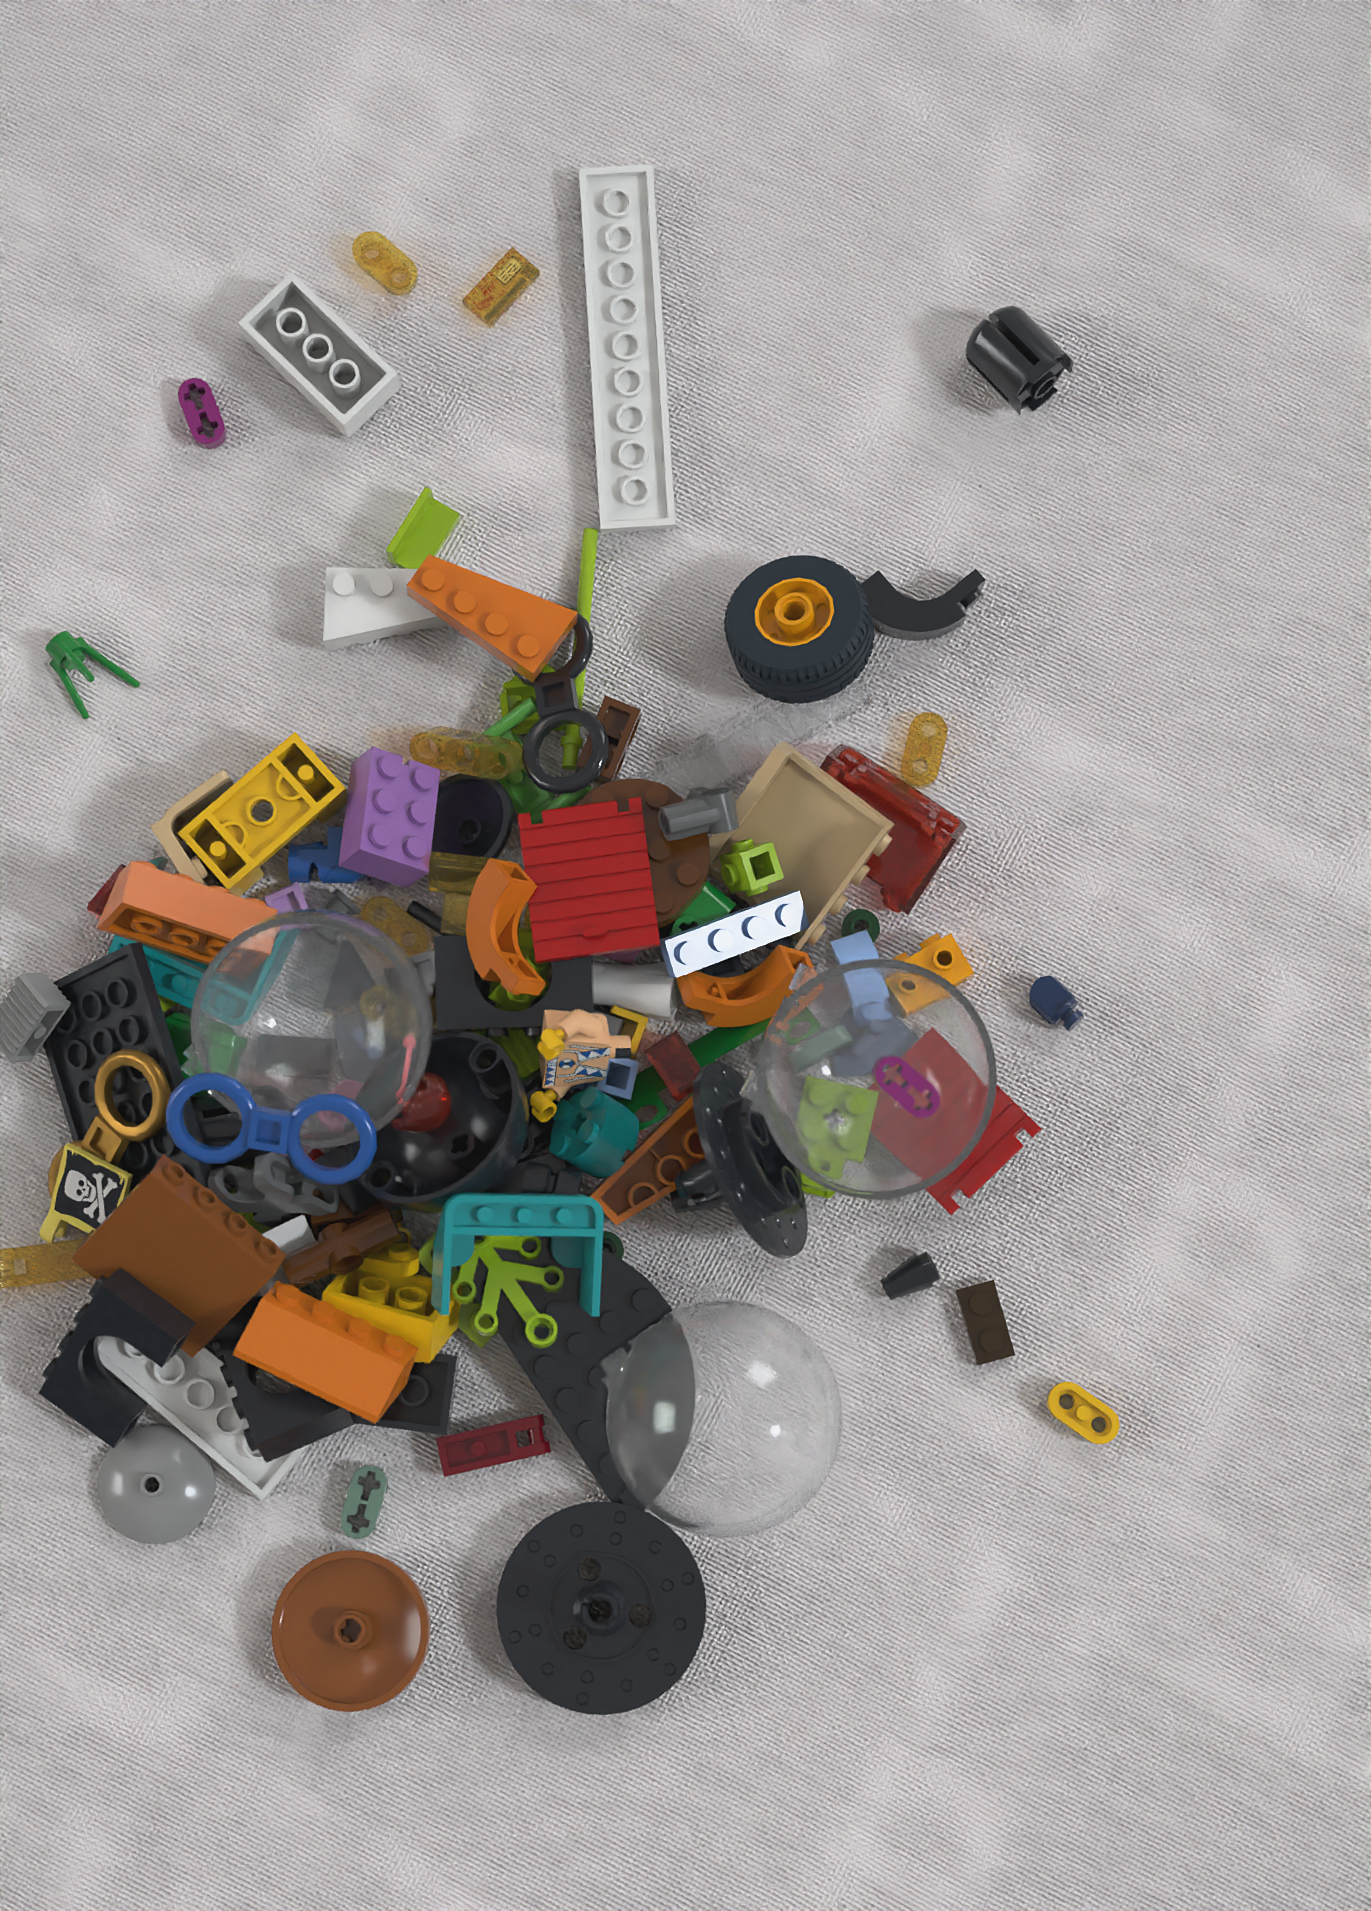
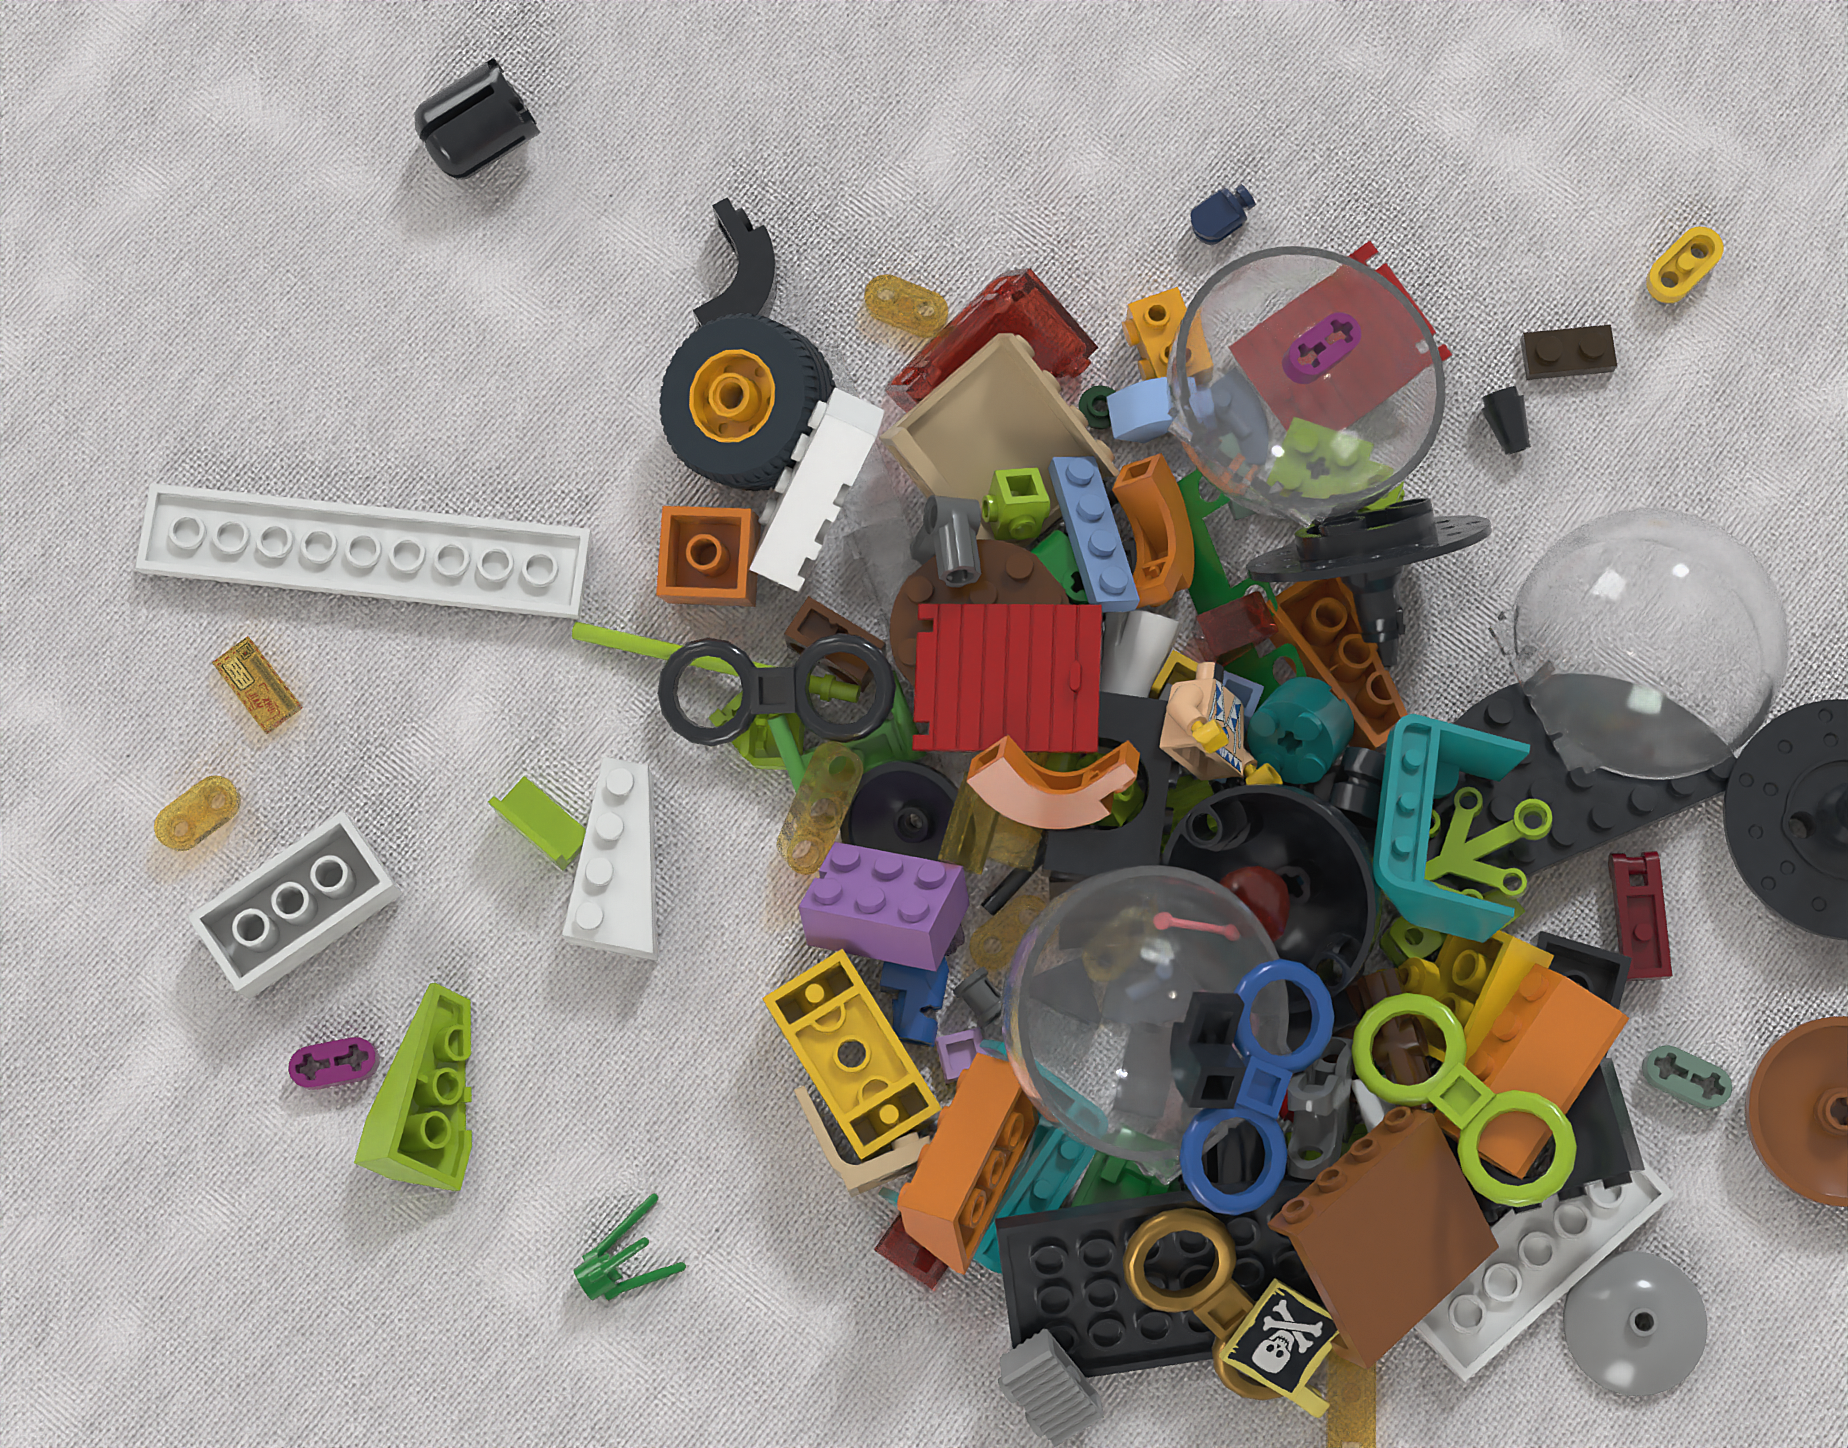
camera: 75 degrees left, 5 degrees down
(78, 1379) = (1440, 1317): black arch -> none
(177, 488) = (420, 1111): none -> lime wedge
(284, 1079) = (1202, 1051): none -> black brick
(290, 1298) = (1464, 1100): none -> lime bar
(496, 616) = (667, 738): orange wedge -> none
(666, 624) = (708, 556): none -> orange brick
(726, 694) = (814, 487): none -> white wedge

